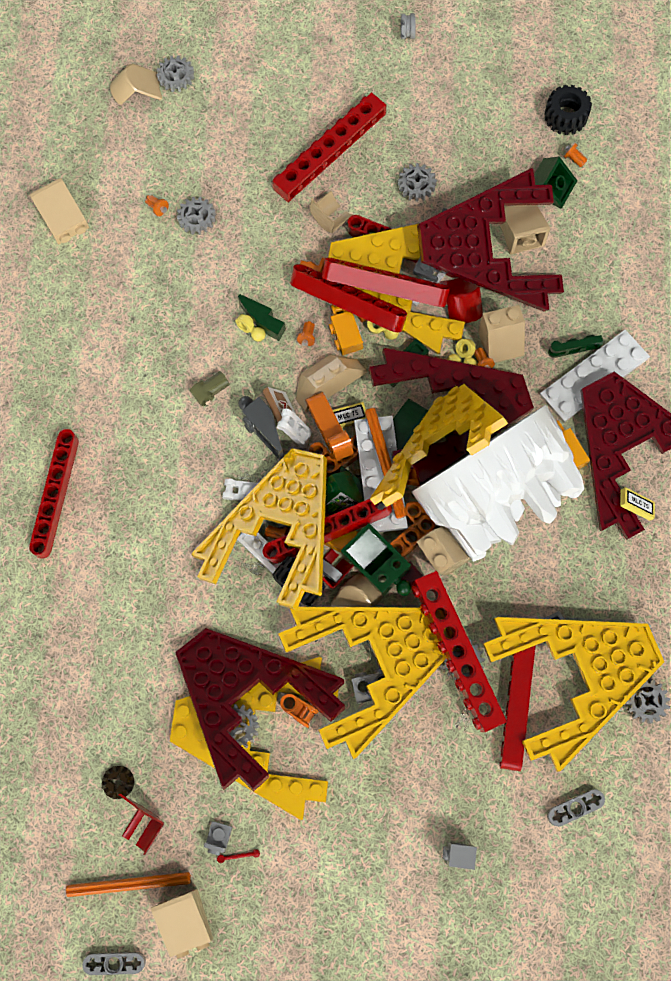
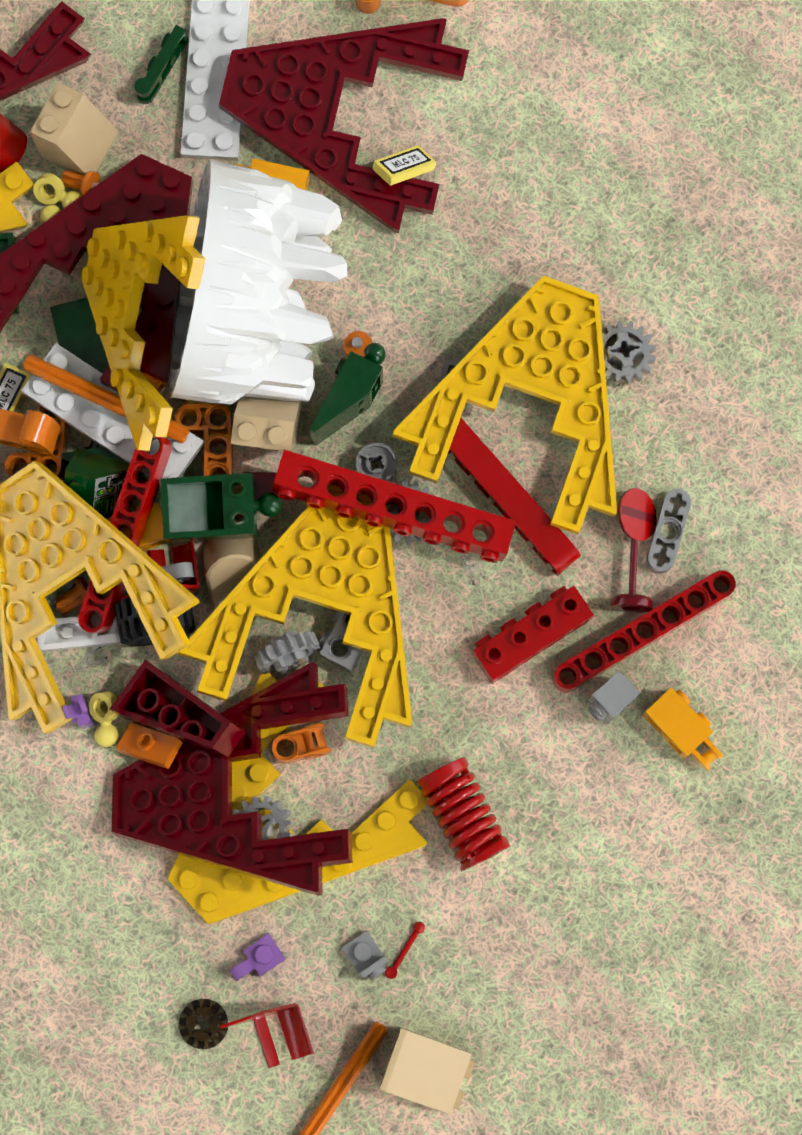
camera: 55 degrees left, 5 degrees up
(175, 782) = (262, 957): none -> medium lavender plate
(222, 584) = (79, 712): none -> medium lavender plate
(234, 595) = (105, 734): none -> light yellow plate
(234, 633) = (149, 745): none -> orange plate
(260, 626) = (170, 708): none -> dark red wedge
(337, 661) = (287, 652): none -> light grey gear
(337, 825) = (457, 818): none -> red piece
(457, 781) = (532, 634): none -> red brick
(478, 907) = (682, 727): none -> light orange brick
(479, 617) = (380, 453): none -> light grey wheel
(498, 578) = (351, 393): none -> dark green slope
(520, 845) = (652, 619): none -> red beam
(524, 561) = (356, 342): none -> orange piece
(565, 787) = (638, 522): none -> piece

